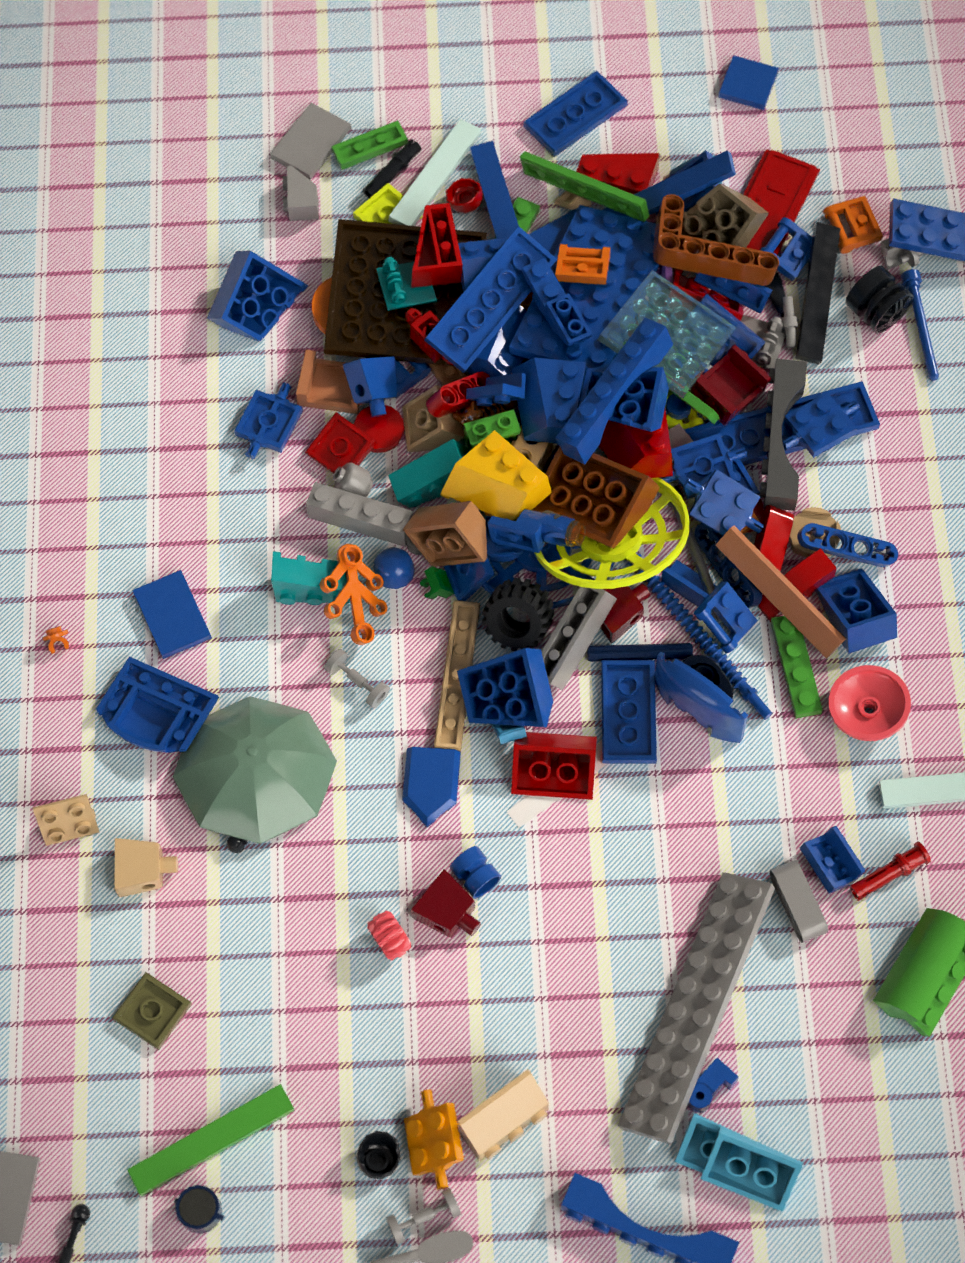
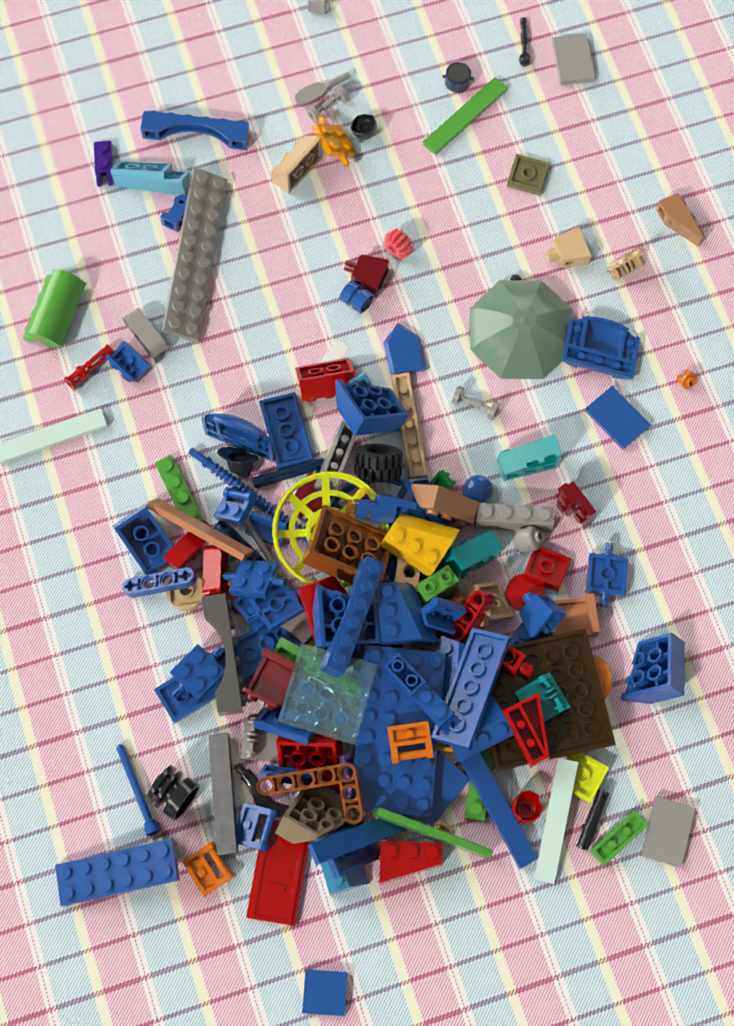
camera: 160 degrees right, 5 degrees up
(279, 504) = (572, 500): none -> dark red plate
(301, 197) = (654, 772): light grey slope -> none
(355, 591) = (498, 454): orange plant -> none
(575, 113) = (461, 920): blue tile -> none
(789, 322) = (240, 758): light grey bar -> none
(808, 1214) = (103, 161): none -> dark purple hinge
(869, 688) = (118, 457): coral dish -> none

